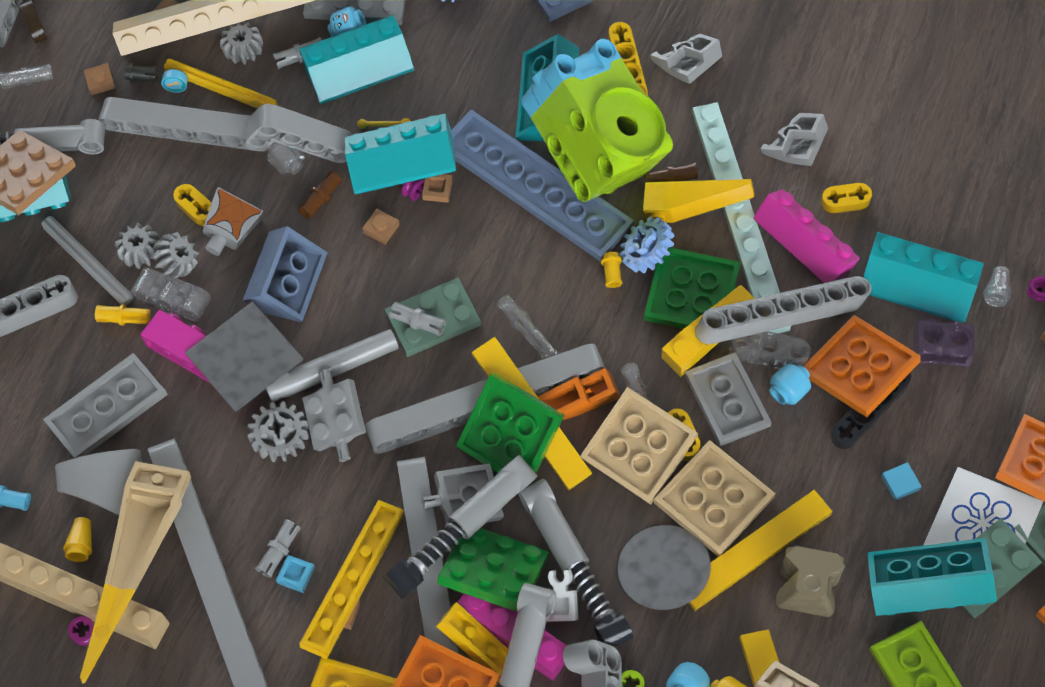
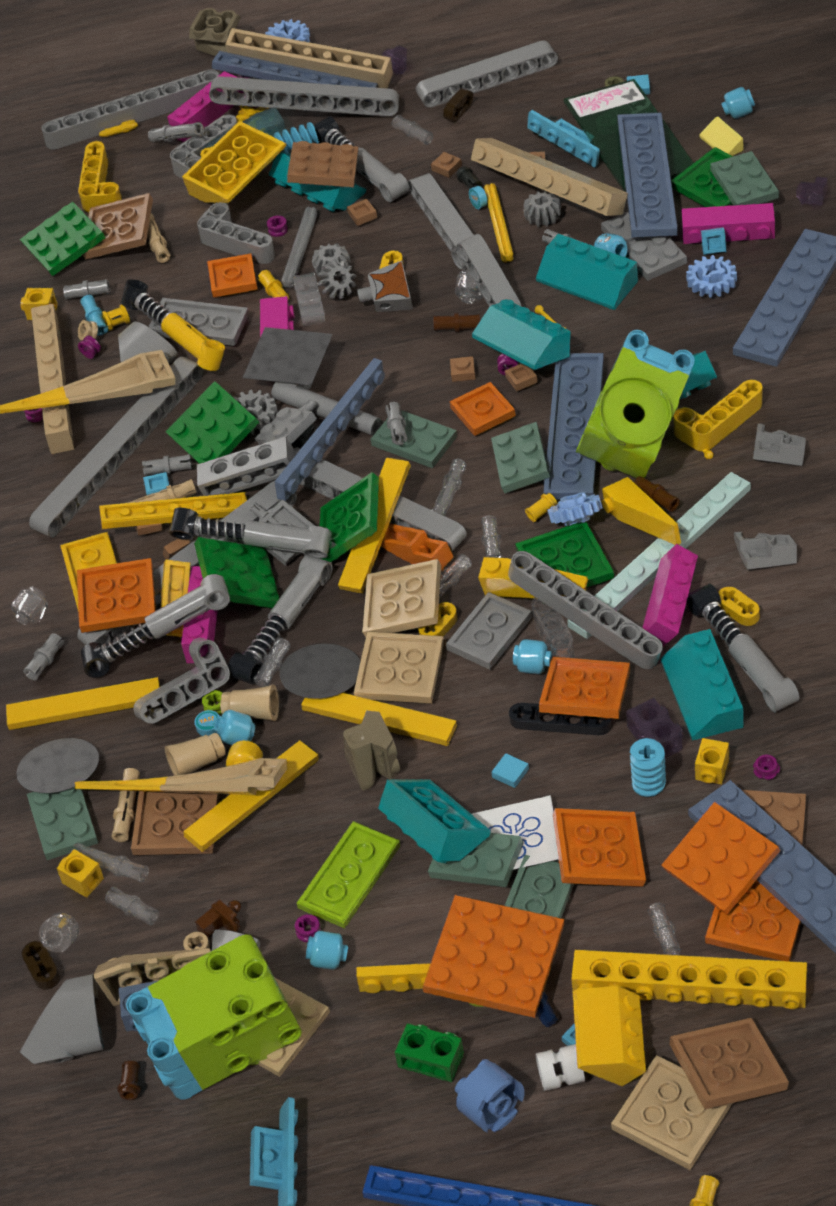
camera: 60 degrees right, 15 degrees down
(25, 477) = (124, 317): none -> yellow bush
(26, 515) = (87, 329): none -> tan bush
(35, 255) = (277, 226): none -> magenta bush
(43, 527) = (89, 347): none -> magenta bush
(69, 340) = (232, 275): none -> orange plate
(79, 541) = (93, 366): yellow cone -> none
(95, 182) = (362, 212): none -> medium nougat plate
(171, 422) = (206, 350): none -> yellow piece
(271, 477) = (212, 425): none -> green plate
(285, 275) = (379, 339): sand blue slope -> none
(322, 571) = (178, 491): none -> tan pin
(363, 495) = (245, 468): none -> light grey brick
(389, 385) = (329, 429): none -> sand blue plate
(406, 608) = (174, 547): none -> medium nougat plate
(450, 241) = (482, 408): none -> orange plate
(540, 248) = (520, 457): none -> sand green plate
(566, 600) = (246, 626): white plate -> none
(618, 331) = (491, 538): none -> clear pin
(622, 602) = (272, 662): none -> clear pin
(665, 651) = (256, 702): none -> tan plant
(967, 228) = (776, 689): none -> light grey piece
(994, 373) = (647, 767): none -> medium azure piece
(998, 288) = (742, 738): clear cone -> none
(1010, 312) = (715, 753): none -> yellow brick

